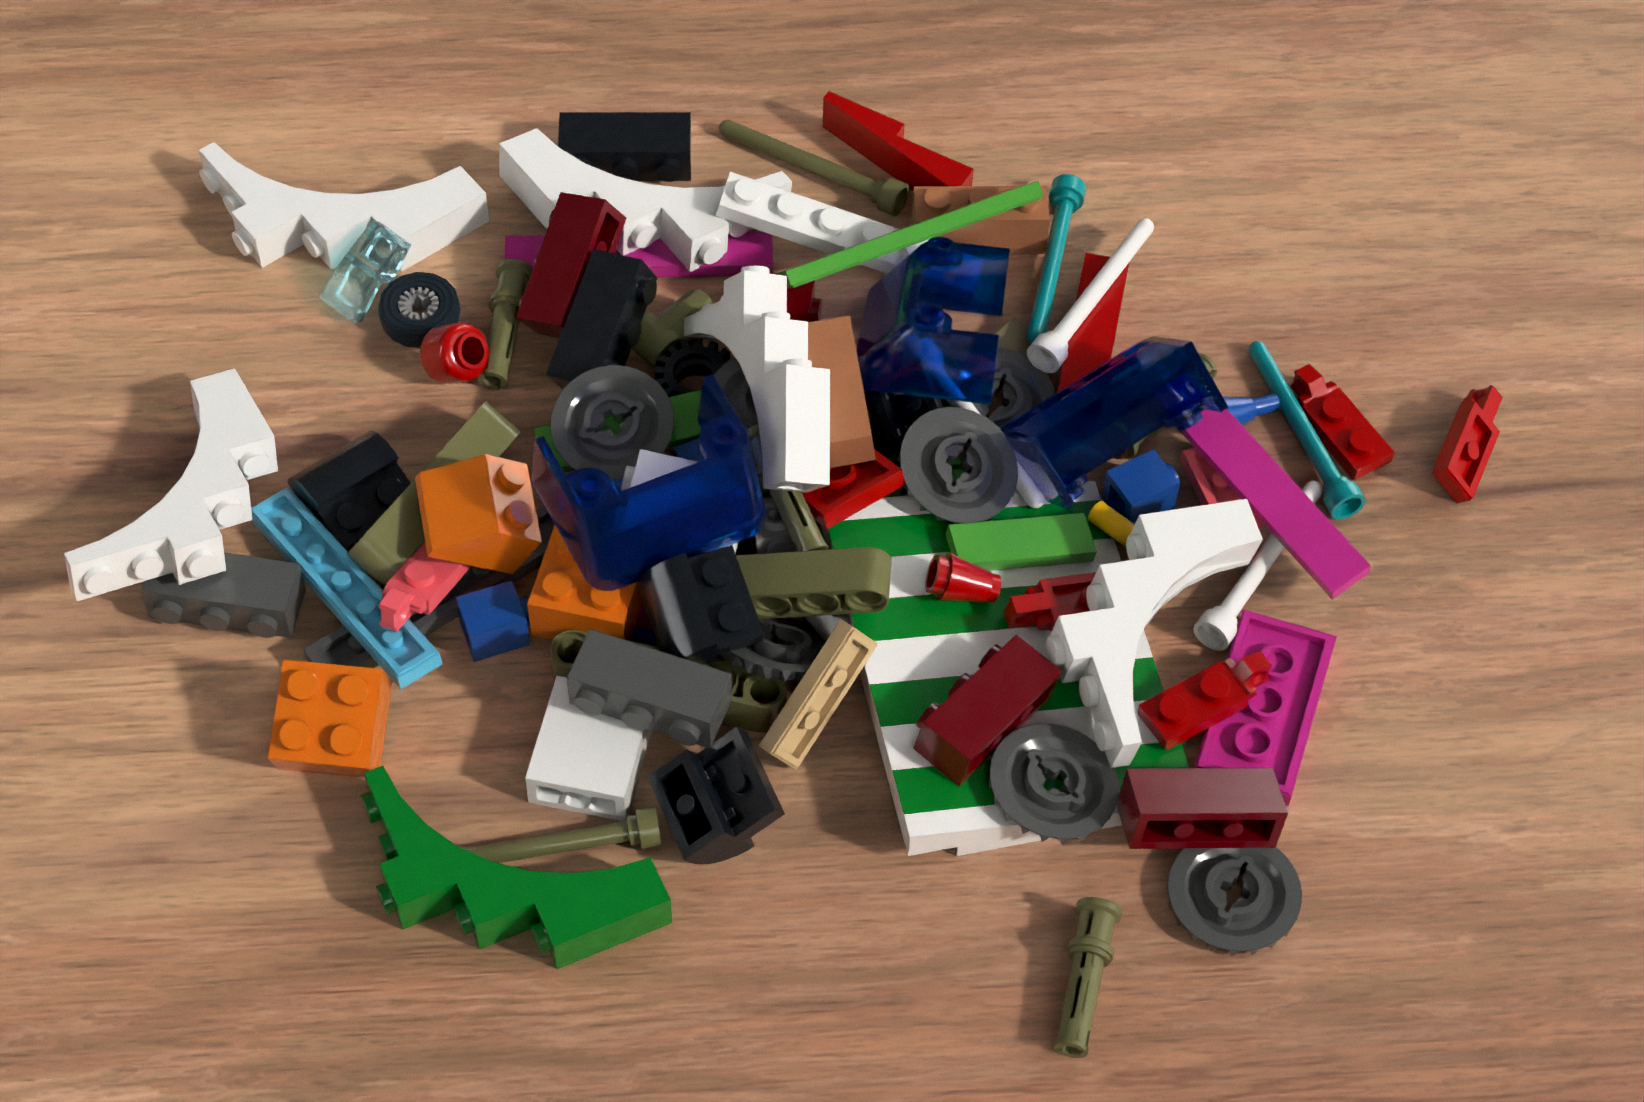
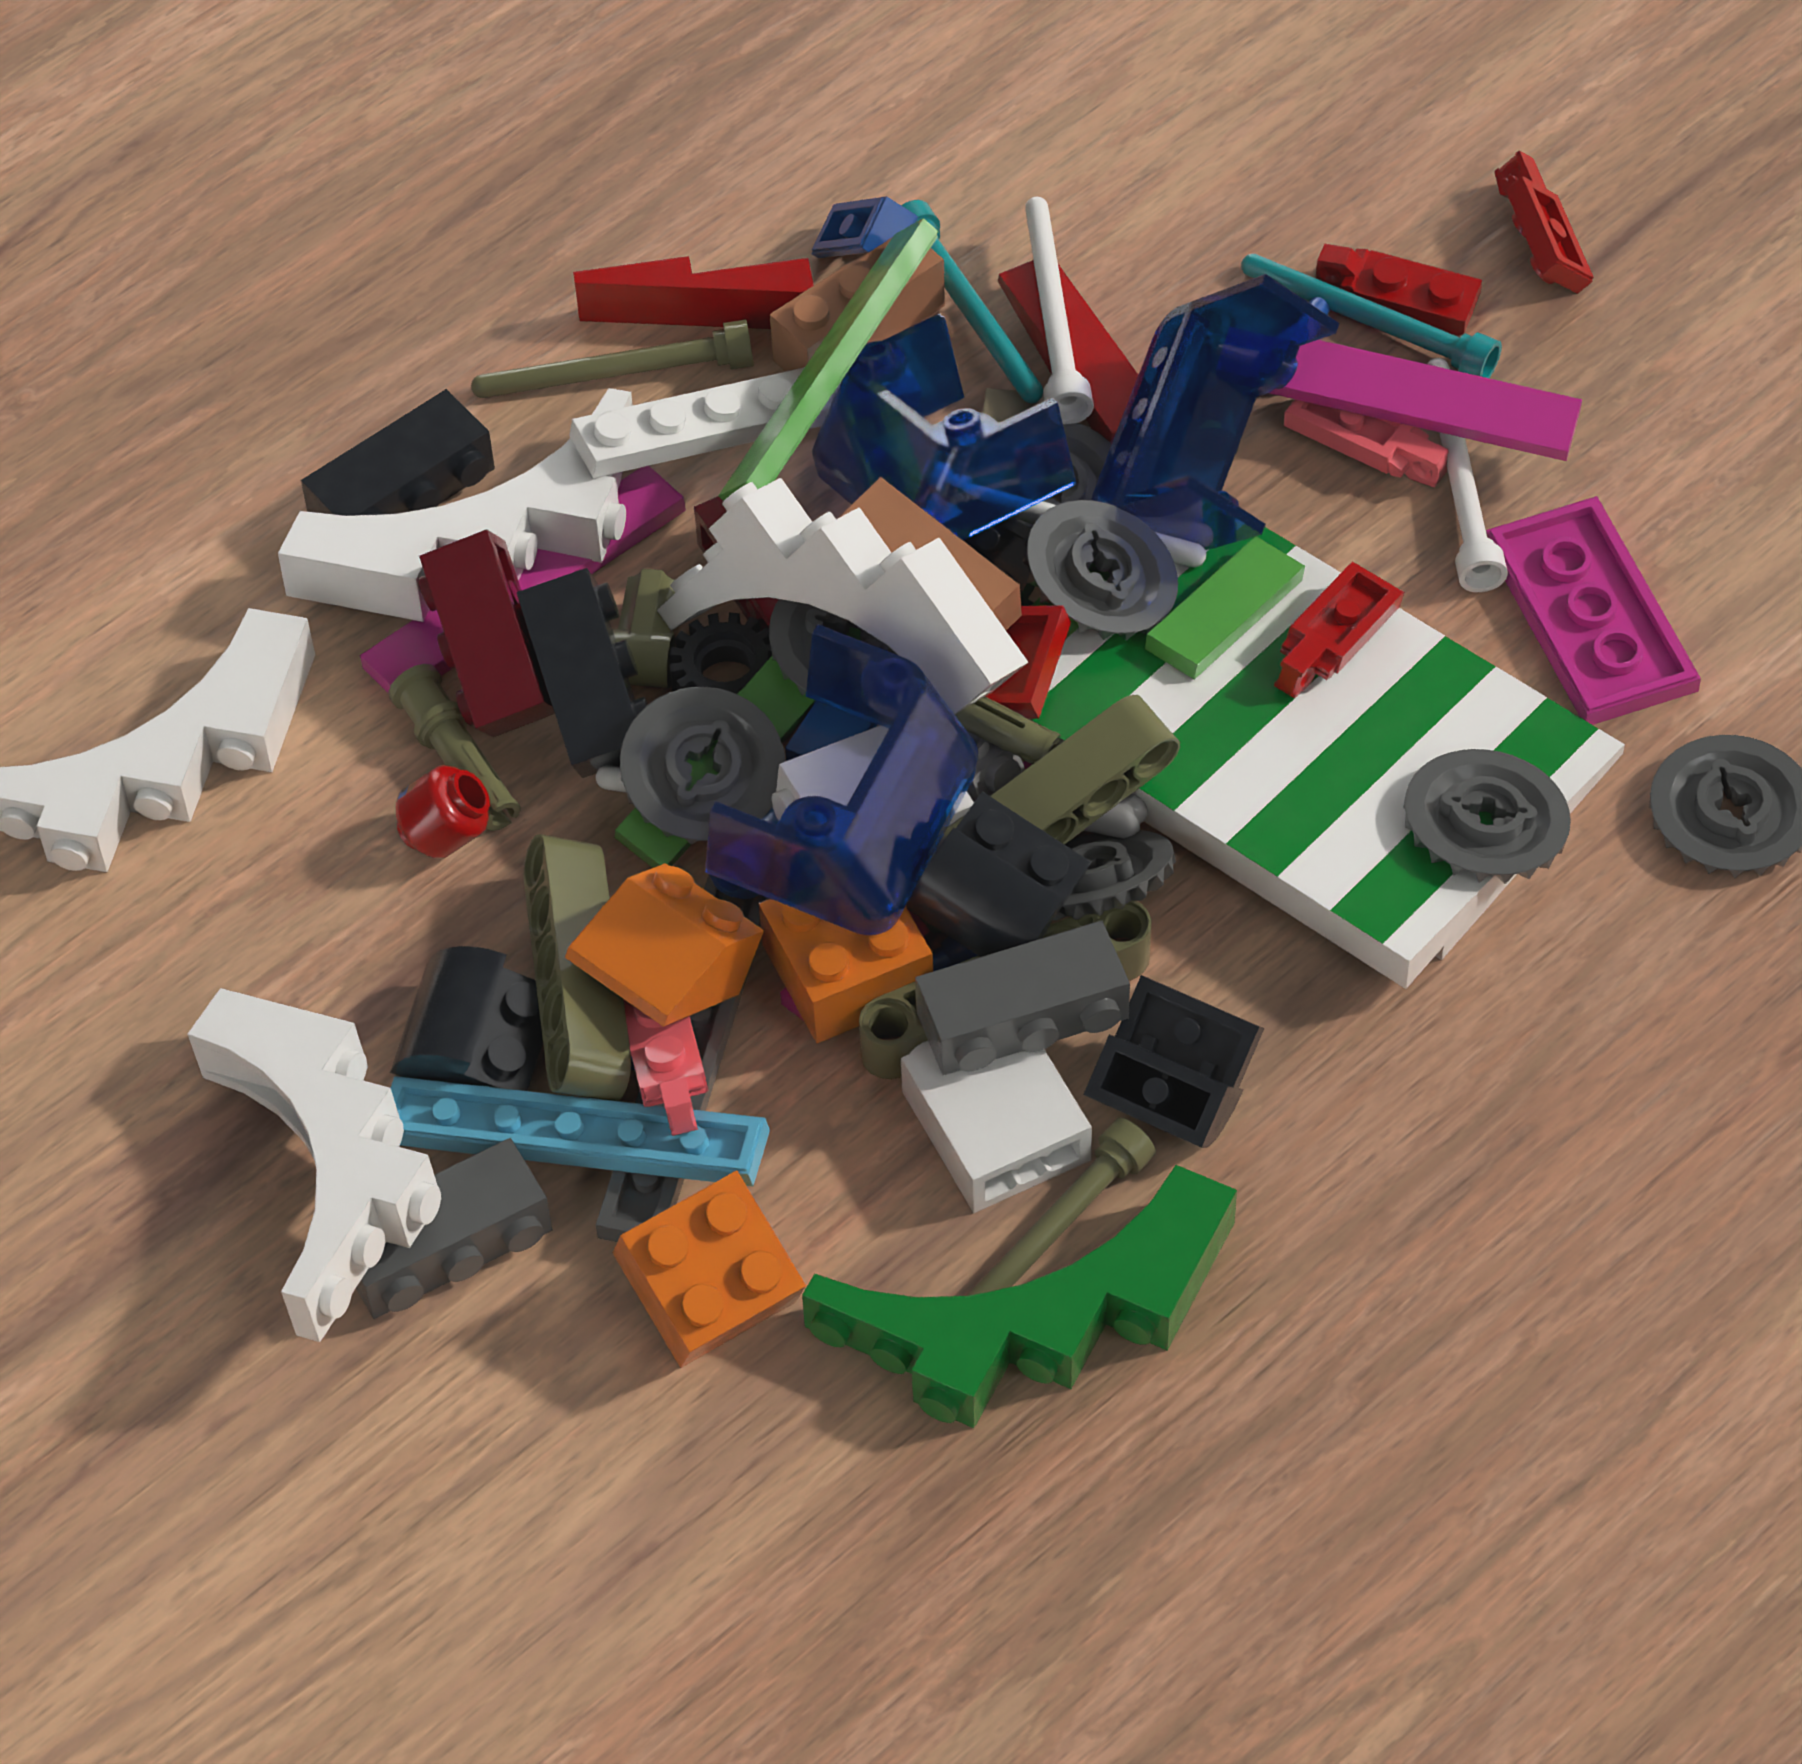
camera: 35 degrees left, 0 degrees up
(368, 263) = (251, 791): clear light blue slope -> none
(412, 291) = (333, 772): black bush -> none
(493, 620) = (764, 1055): blue brick -> none
(818, 694) = (1185, 889): tan tile -> none
(959, 580) = (1213, 680): red cone -> none
(985, 708) = (1364, 786): dark red brick -> none
(1025, 169) = (861, 226): none -> blue slope
(1089, 955) = (1663, 953): olive pin -> none
(1111, 522) = (1315, 529): yellow arm -> none
(1141, 486) = (1282, 478): blue brick -> none
(1165, 557) = (1396, 587): white arch -> none
(1201, 808) = (1643, 741): dark red brick -> none
(1204, 699) = (1539, 640): red hinge -> none

